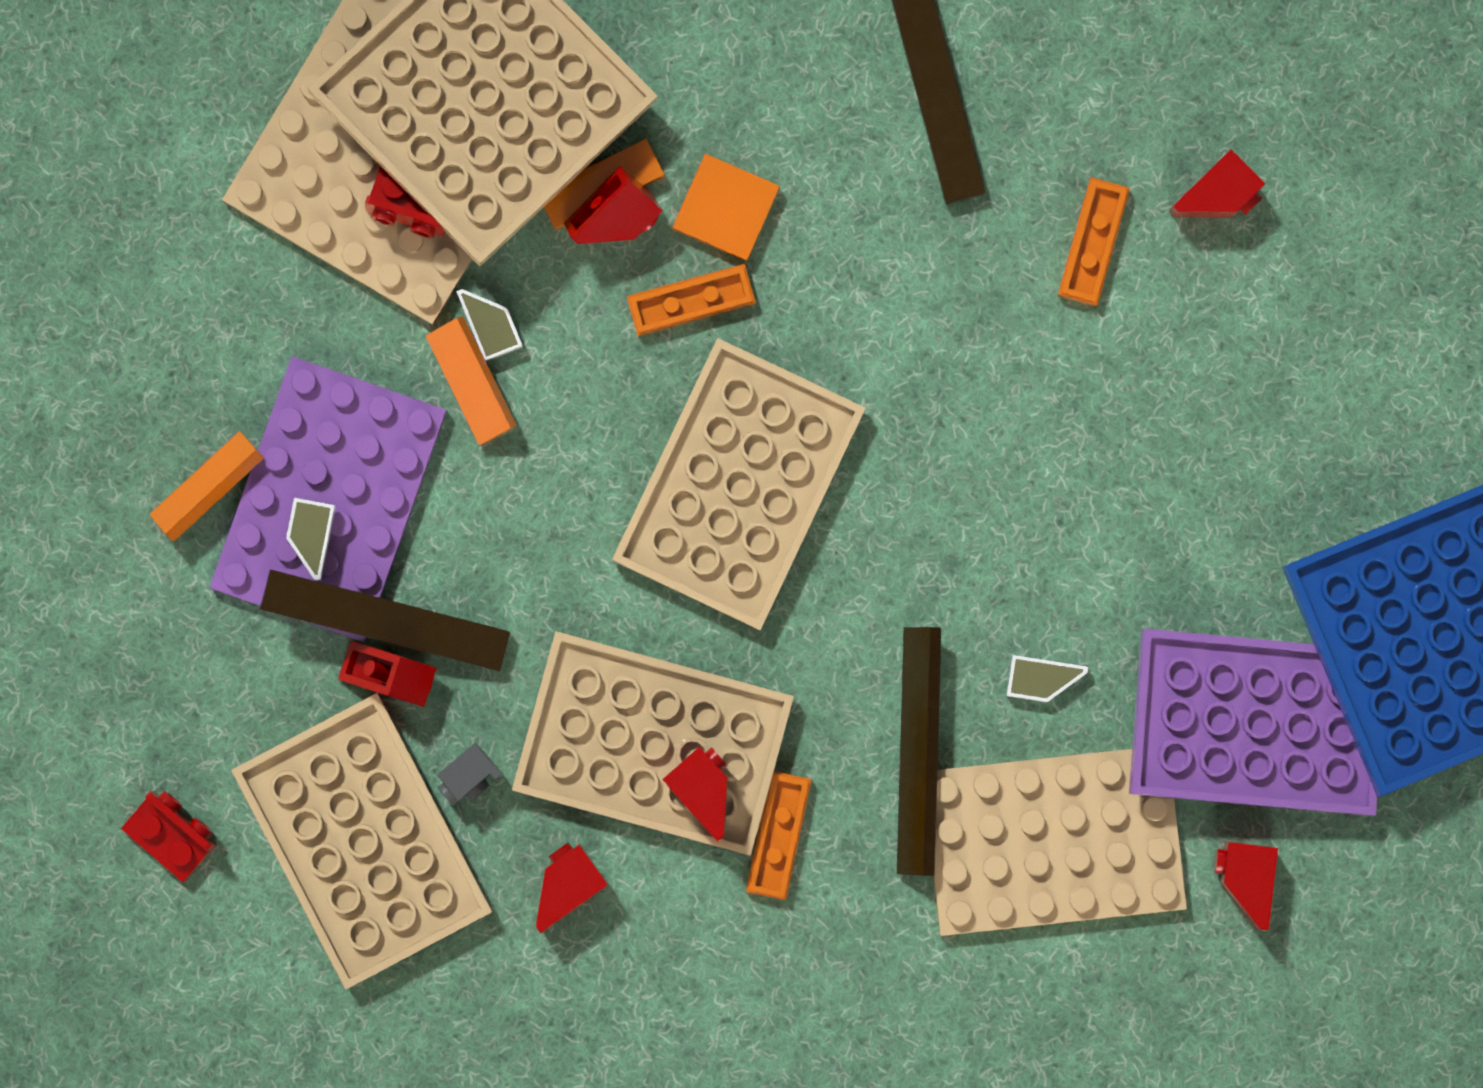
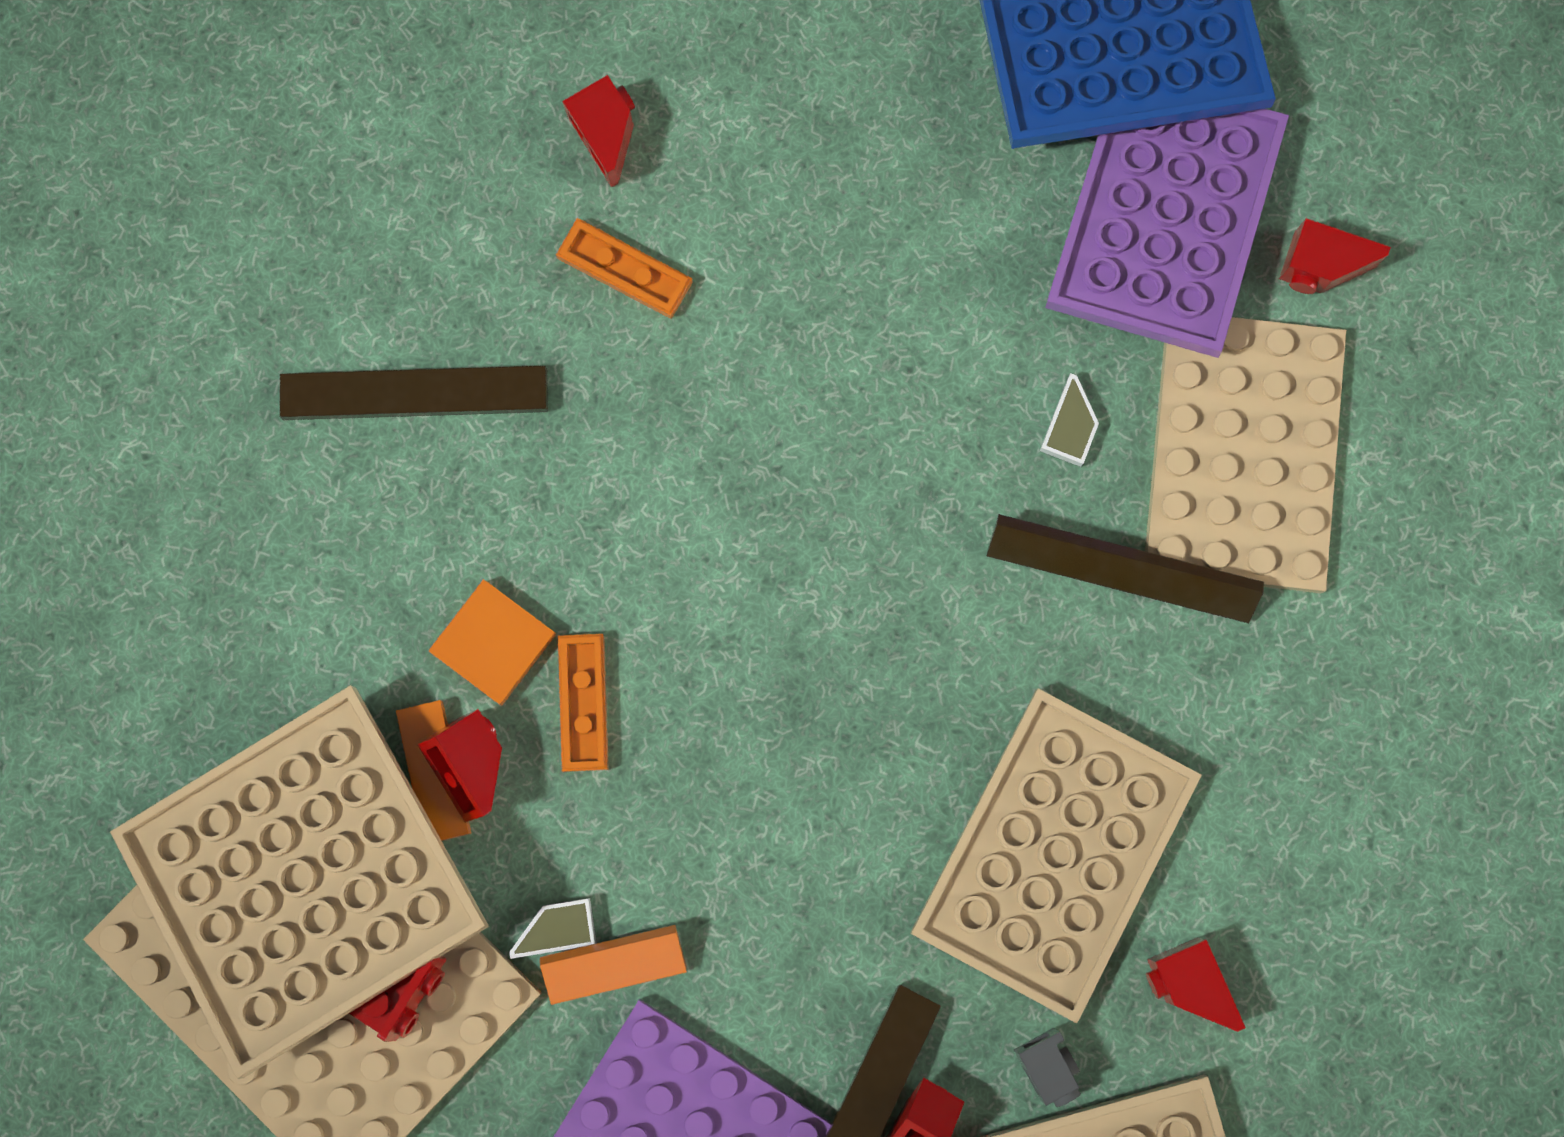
camera: 75 degrees left, 5 degrees down
(702, 788) = (1122, 810): red slope -> none
(738, 484) = (795, 696): tan plate -> none
(778, 836) = (1184, 740): orange tile -> none

